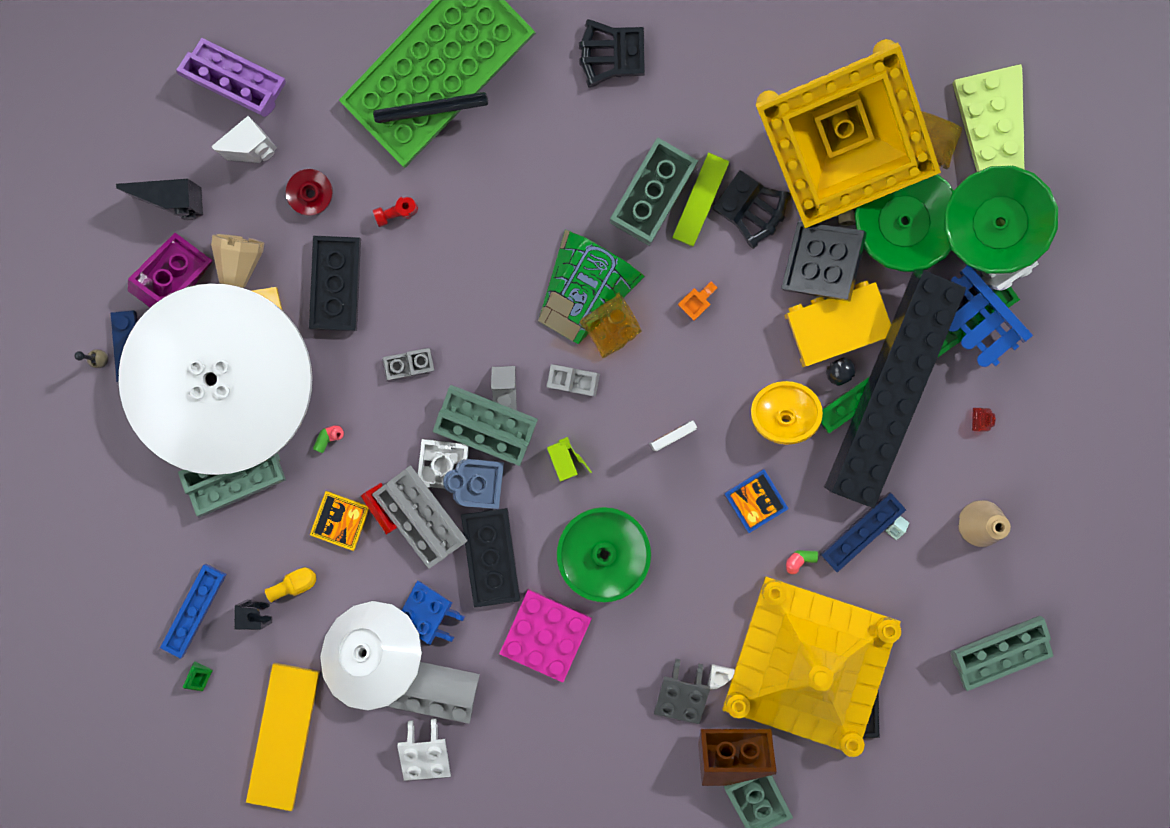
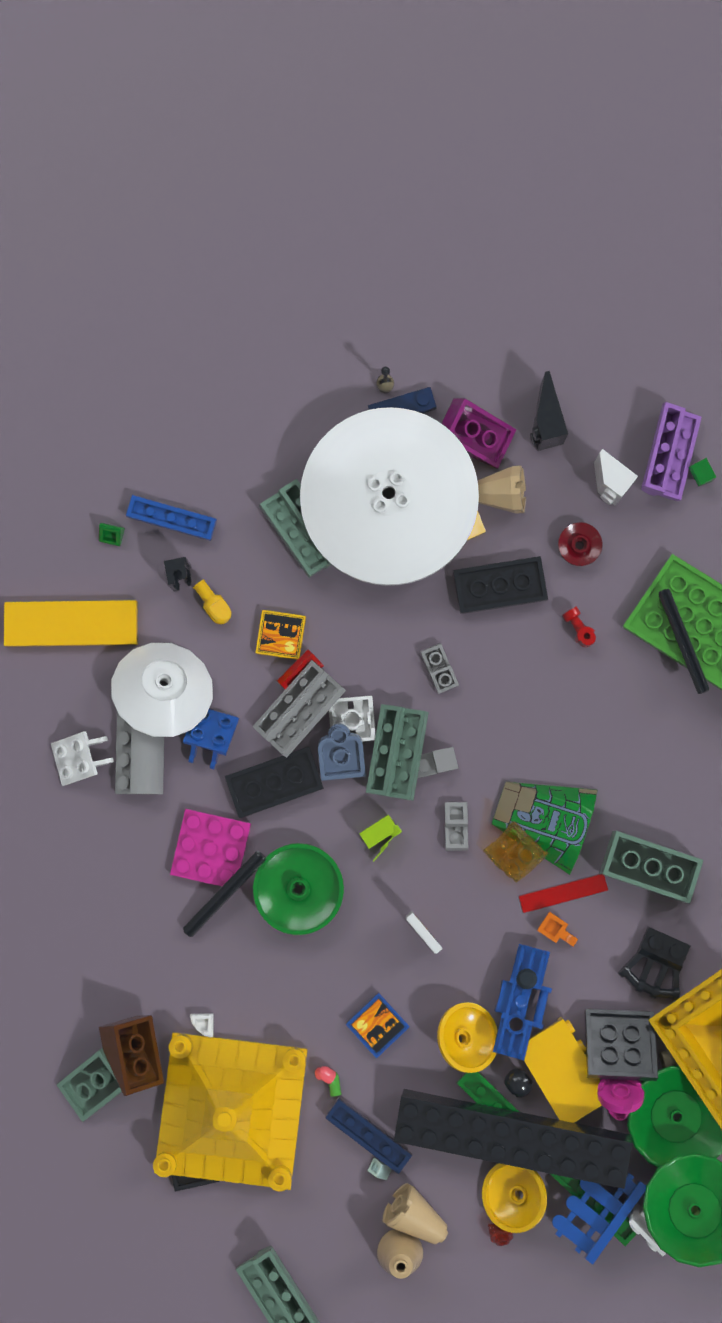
camera: 85 degrees right, 5 degrees down
(260, 49) = (702, 472): none -> green slope
(327, 435) = (358, 607): arm -> none
(593, 630) = (224, 894): none -> black axle
(662, 286) = (563, 893): none -> red sticker
(682, 699) = (175, 991): dark grey plate -> none
(700, 199) = (654, 913): lime slope -> none
(758, 358) = (514, 999): none -> blue piece
(875, 272) = (620, 1096): none -> dark pink tile
(950, 502) = (414, 1216): none -> tan cone
(952, 410) = (503, 1201): none -> yellow dish

